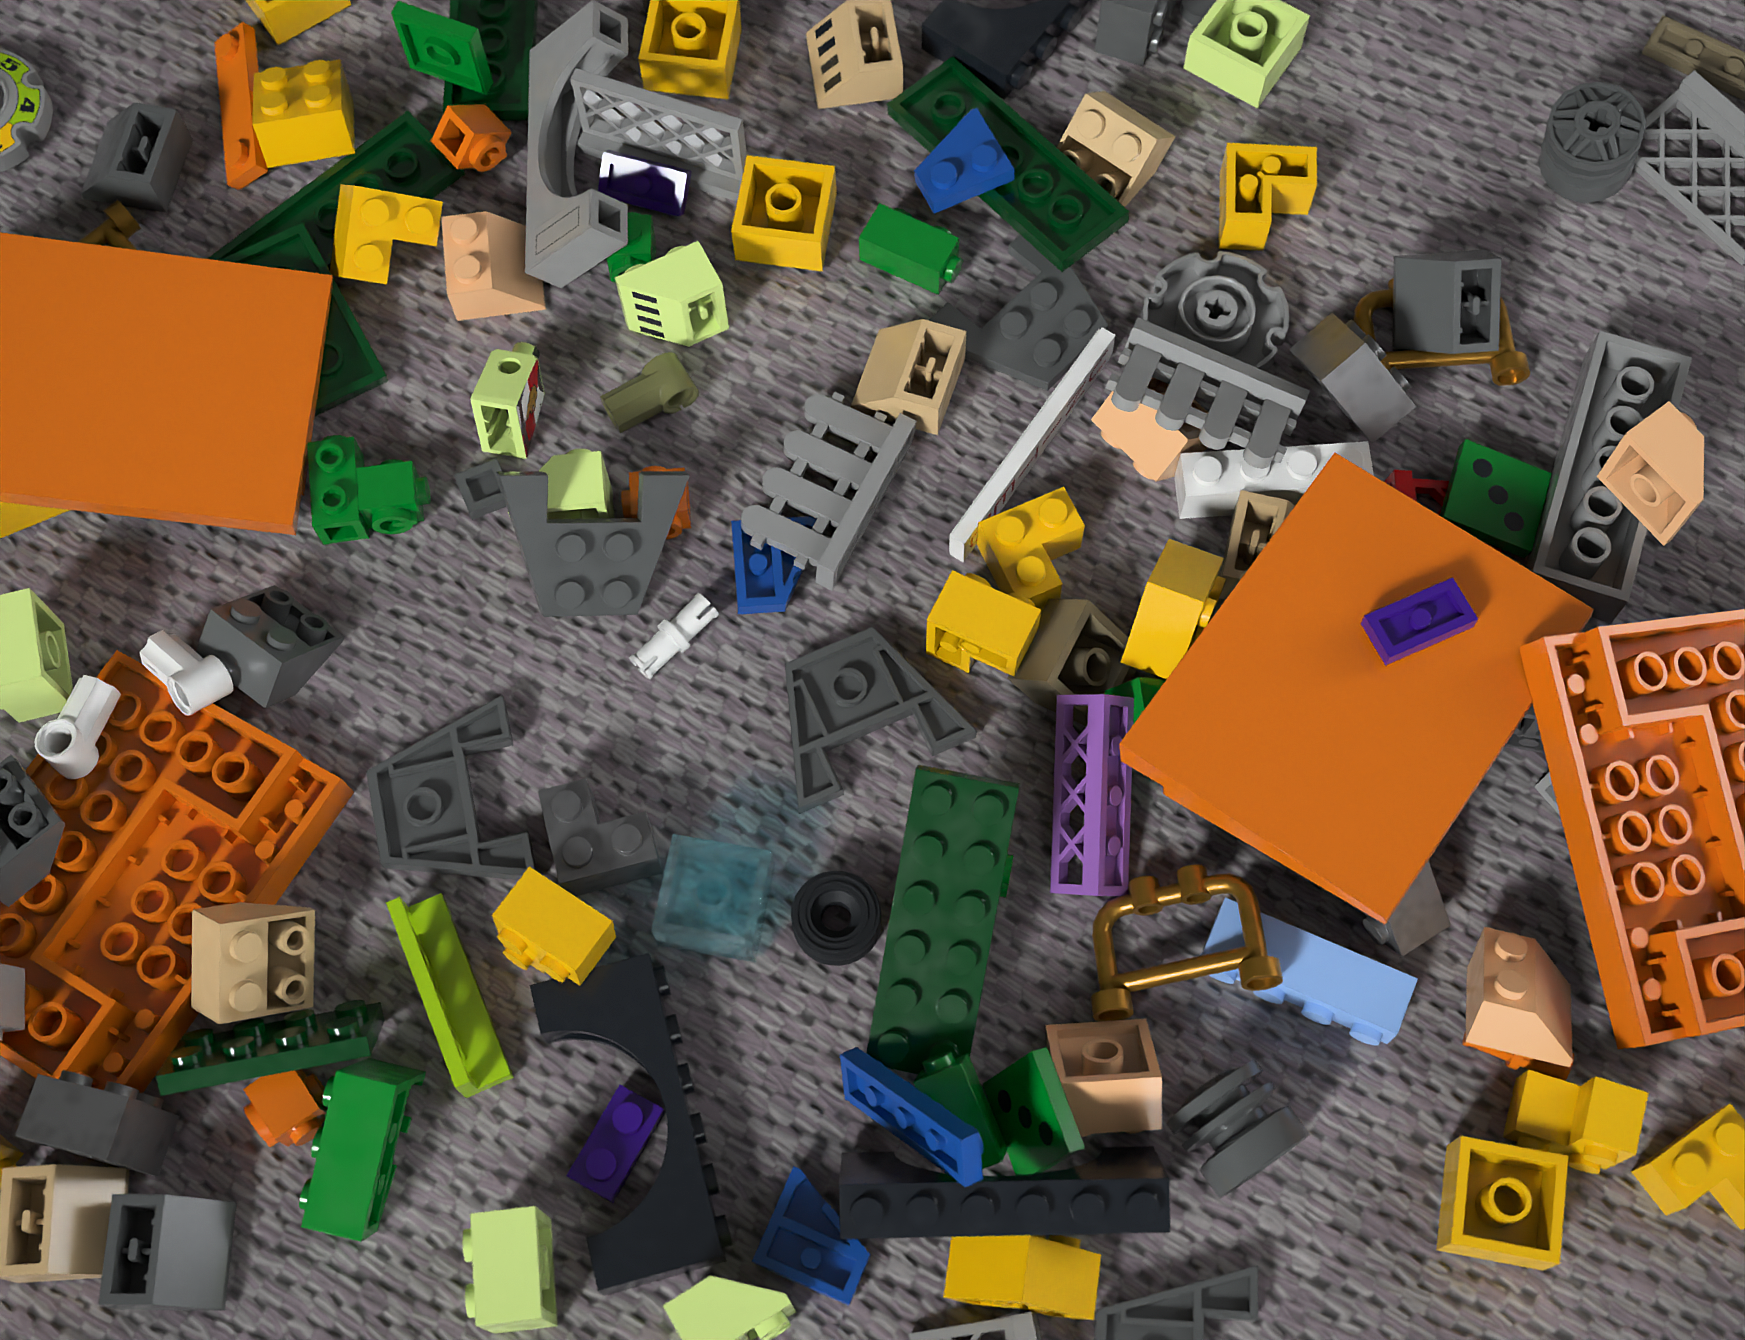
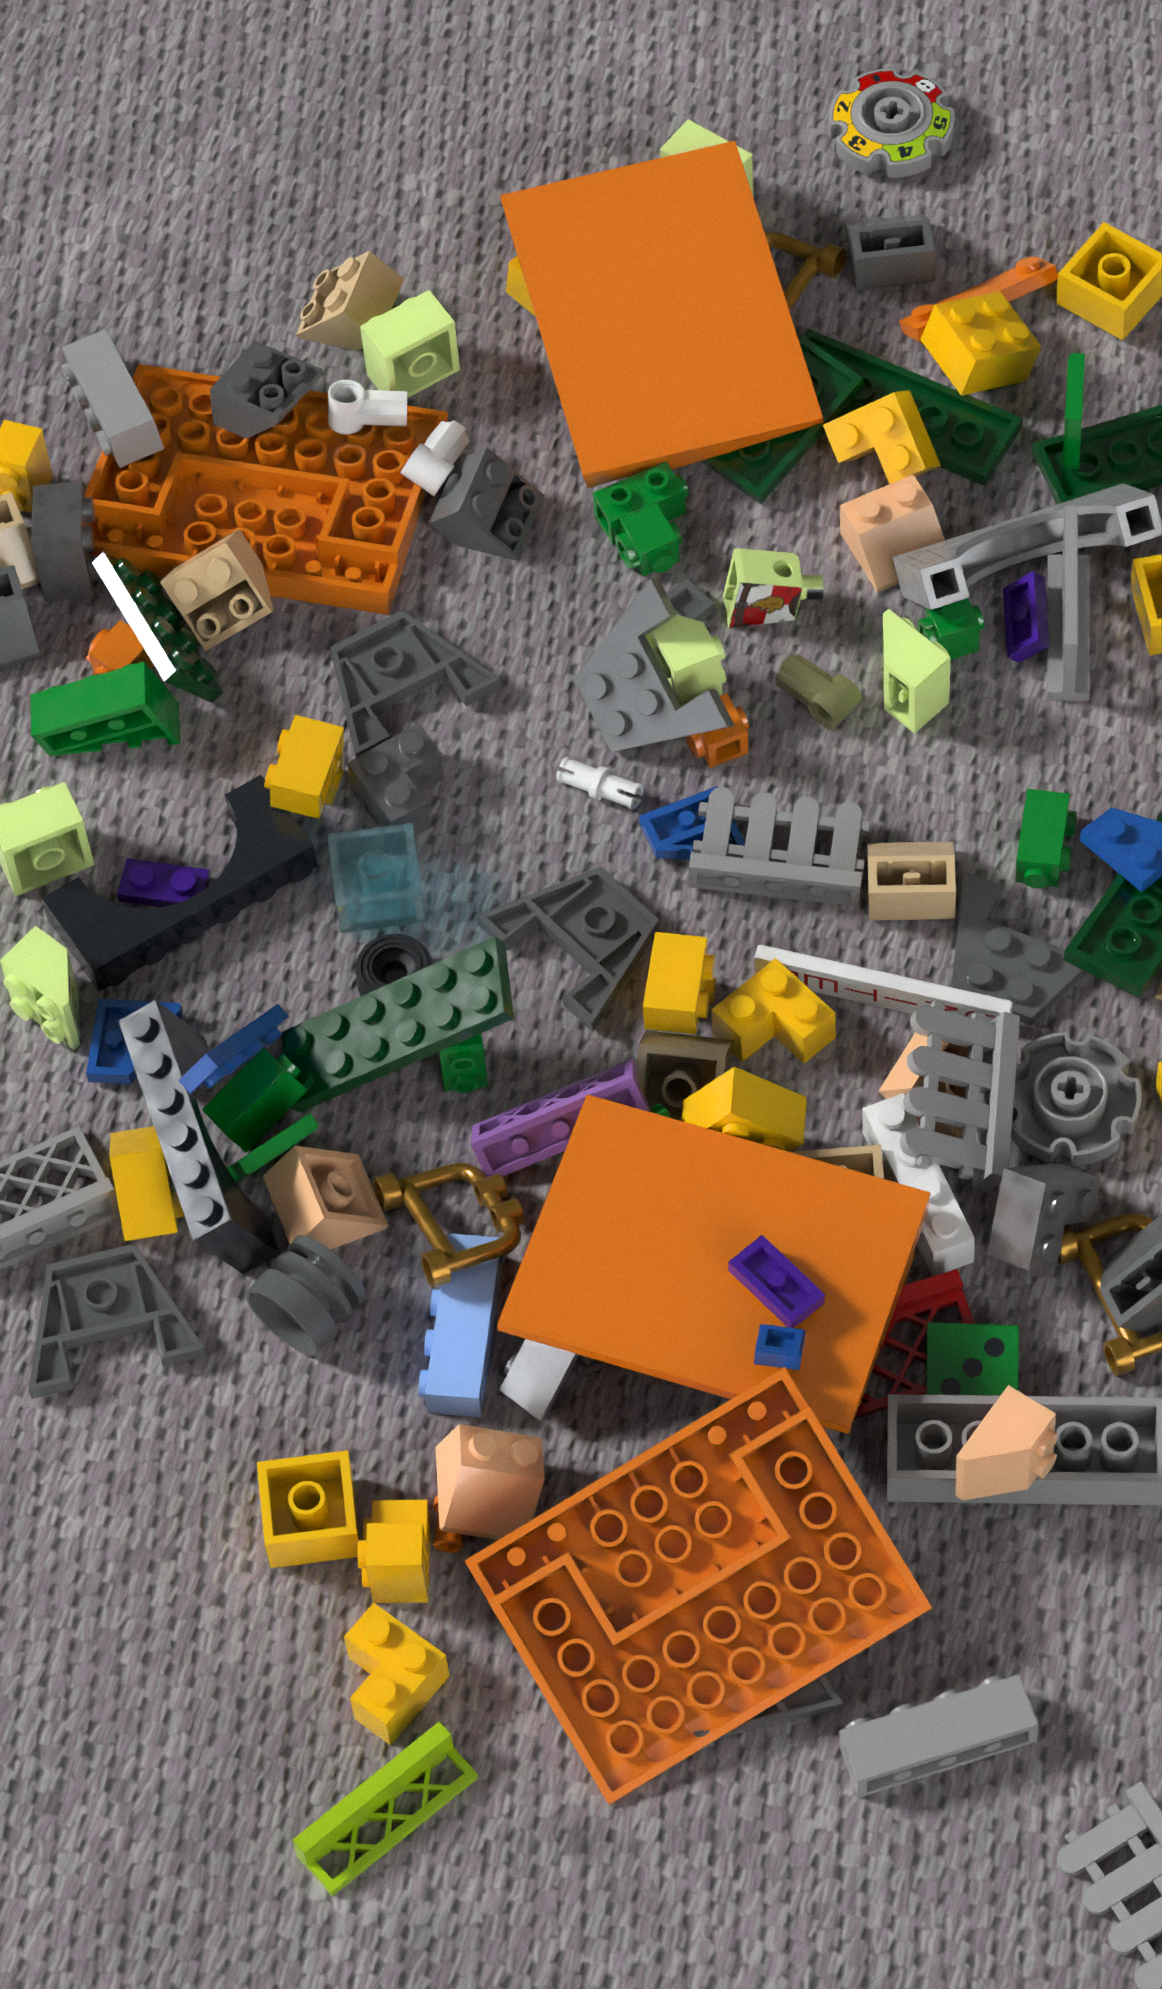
camera: 75 degrees right, 10 degrees down
(450, 994) = (242, 732): lime fence -> none
(471, 137) = (1012, 472): orange brick -> none
(784, 213) = (1033, 728): yellow brick -> none
(1498, 641) = (779, 1347): none -> blue tile

